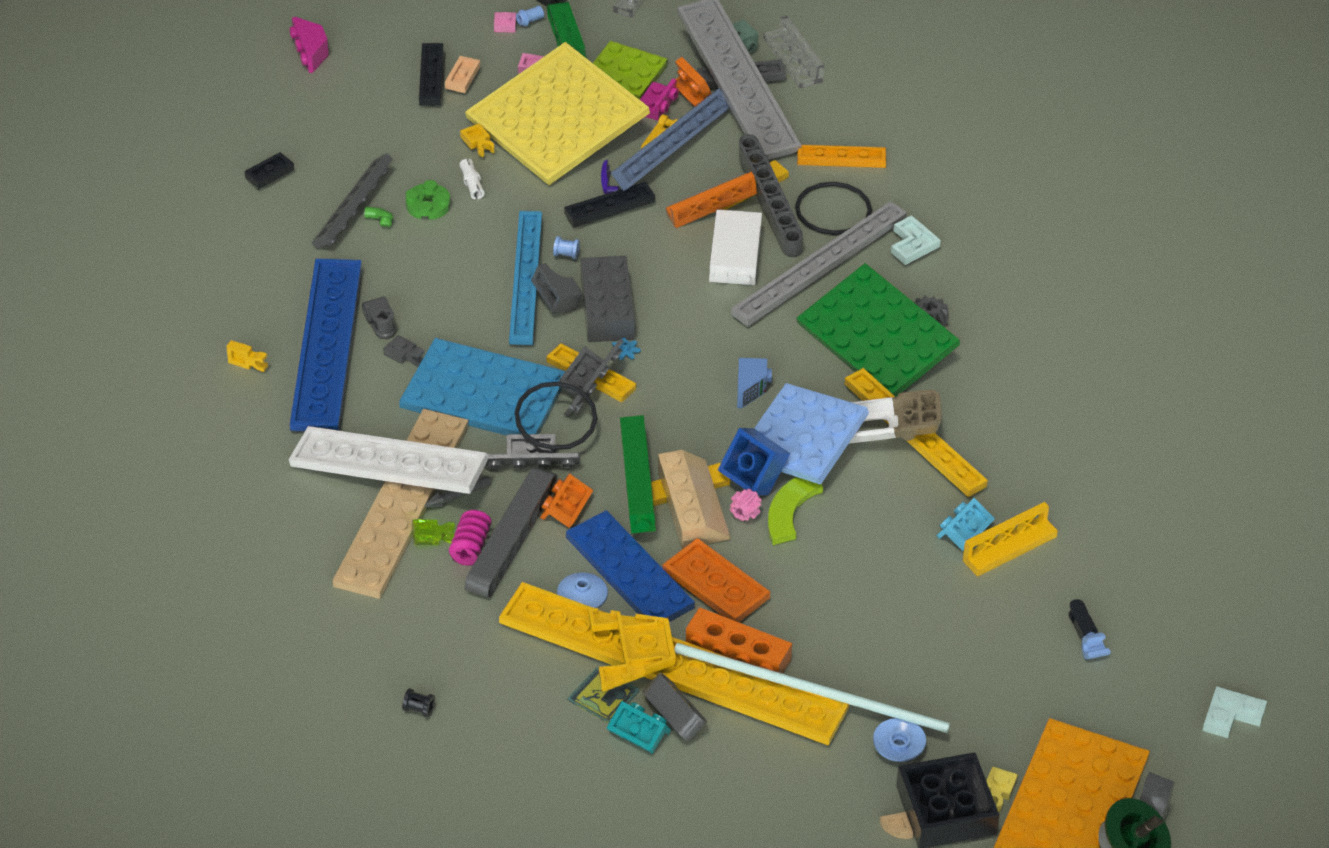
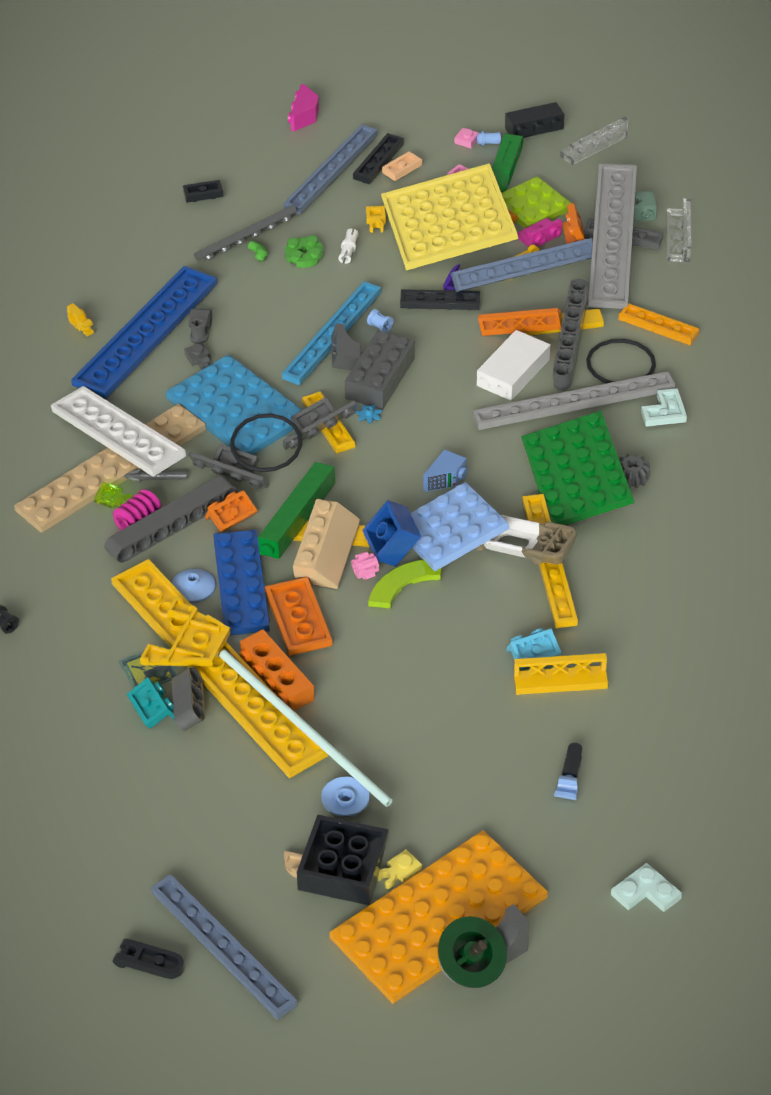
camera: 30 degrees right, 0 degrees up
(389, 100) = (331, 168): none -> sand blue plate

